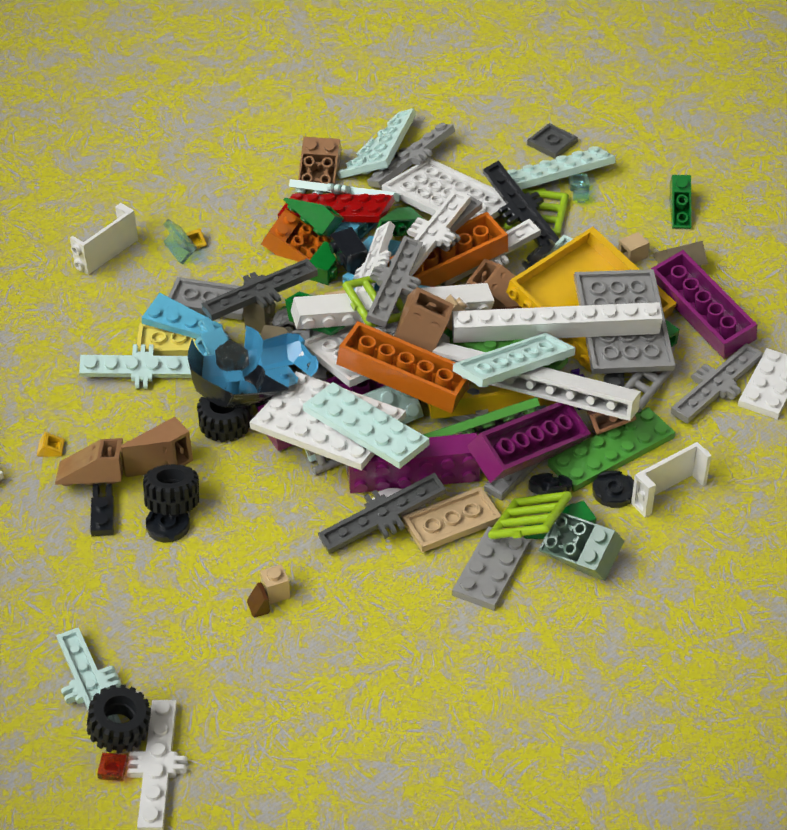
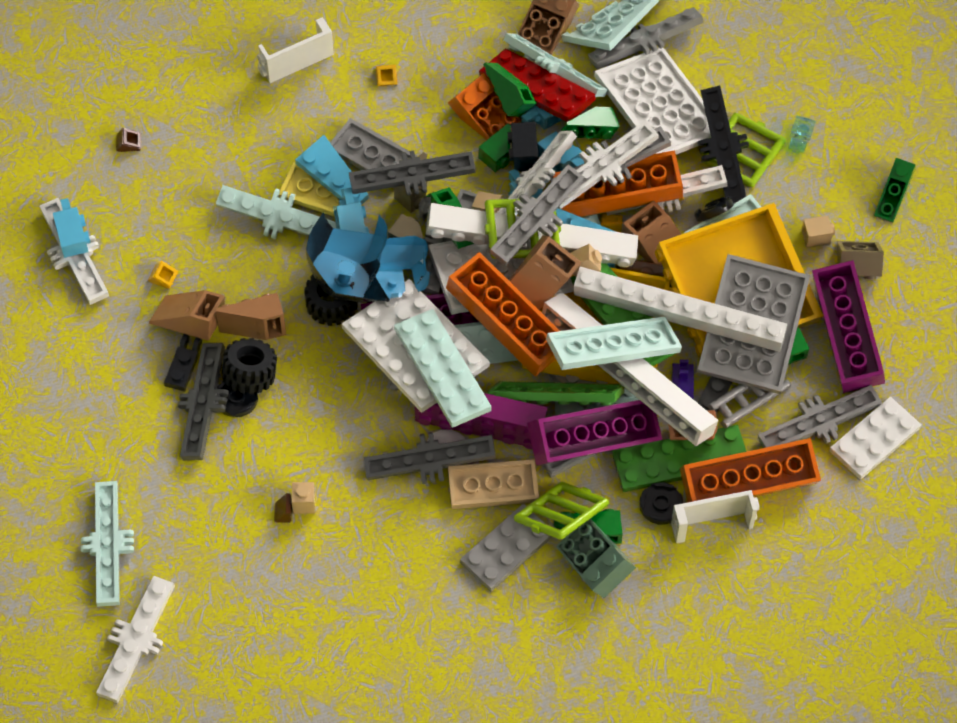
camera: 20 degrees right, 15 degrees up
(112, 766) = (96, 628): clear red plate -> none
(118, 735) = (114, 605): black tyre -> none
(136, 535) = (203, 401): none -> dark grey hinge
(178, 242) = (368, 74): clear light blue panel -> none
(232, 356) = (355, 242): clear smoke brick -> none
(546, 483) = (600, 480): black tile -> none
(552, 140) = (803, 62): dark grey tile -> none
(561, 167) = (788, 104): light aqua plate -> none
(706, 422) = (758, 470): none -> orange brick

